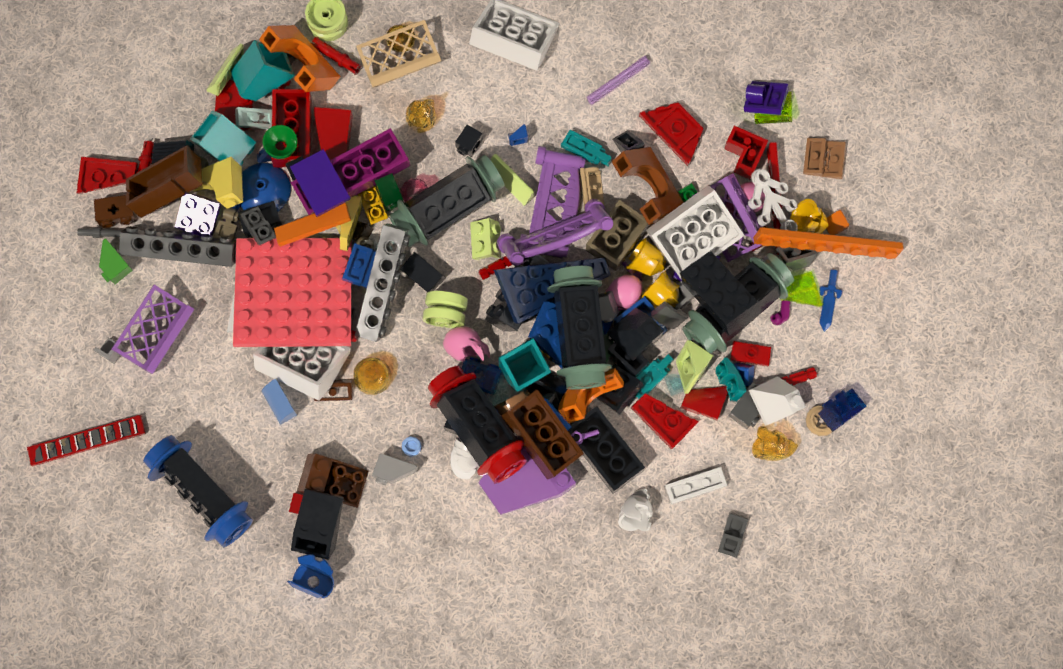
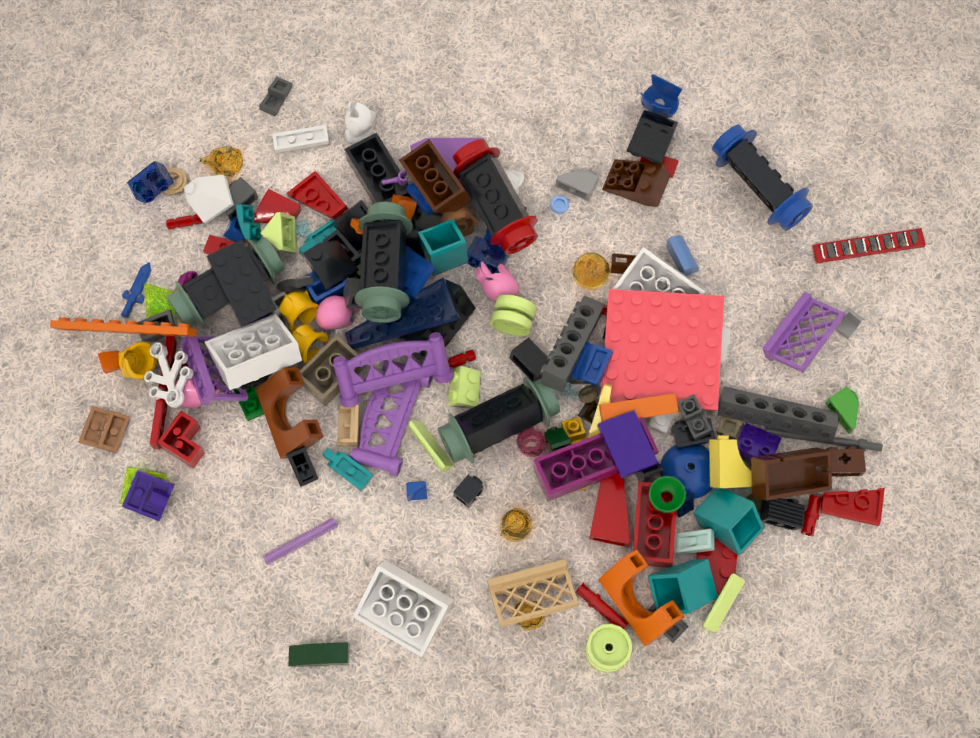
camera: 175 degrees left, 5 degrees down
(675, 129) = (250, 478): red wing -> none

